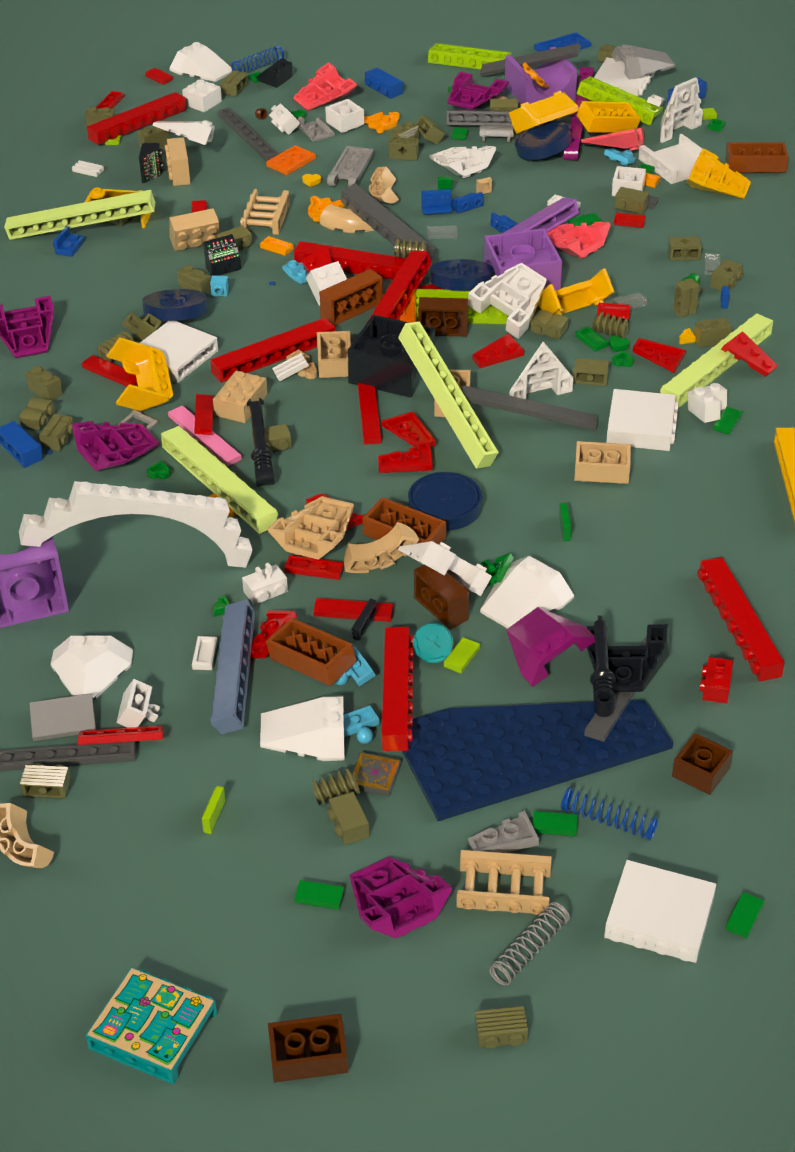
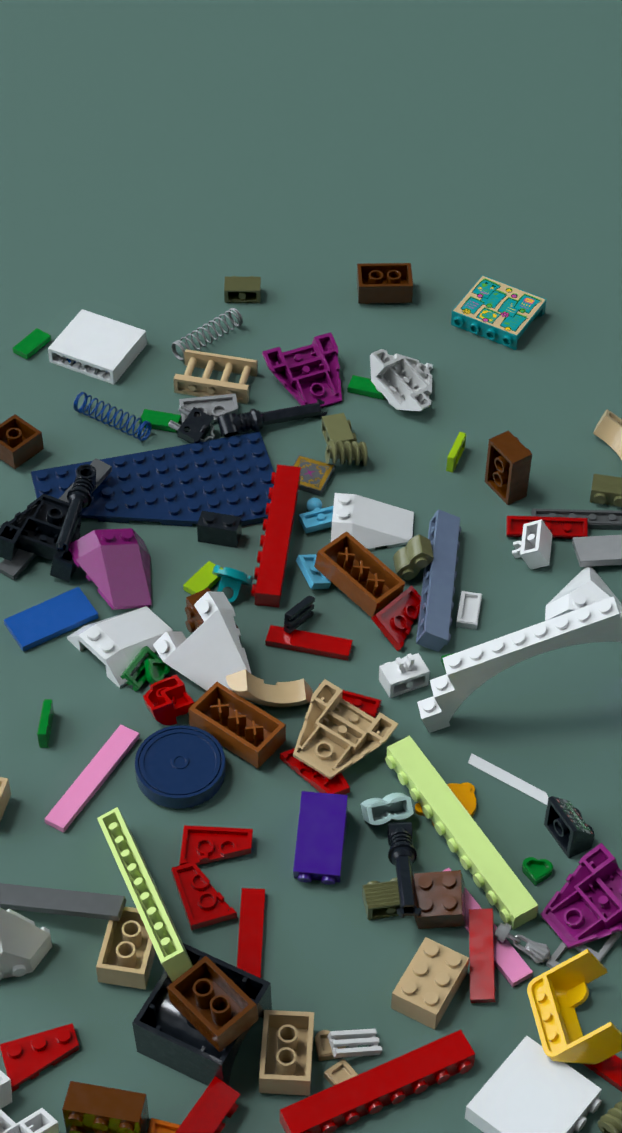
camera: 175 degrees left, 5 degrees up
(131, 475) = (568, 827): none -> black slope
(157, 765) = (508, 467): none -> reddish brown brick
(176, 528) = (508, 778): none -> white sticker
(187, 421) = (537, 951): none -> light grey piece
(233, 432) = (440, 899): none -> reddish brown brick
(258, 674) = (413, 557): none -> olive brick
(270, 886) = (402, 380): none -> white wedge
(275, 484) = (393, 806): none -> light aqua brick
(325, 467) = (320, 837): none -> dark purple slope
(380, 323) = (213, 1003): none -> reddish brown brick
(444, 823) = (233, 424): none -> black piece
(456, 693) = (219, 529): none -> black brick
(467, 539) = (168, 700): none -> red brick
(512, 804) = (194, 426): none -> black piece
(513, 497) = (91, 778): none -> bright pink tile
(604, 599) = (50, 619): none -> blue tile

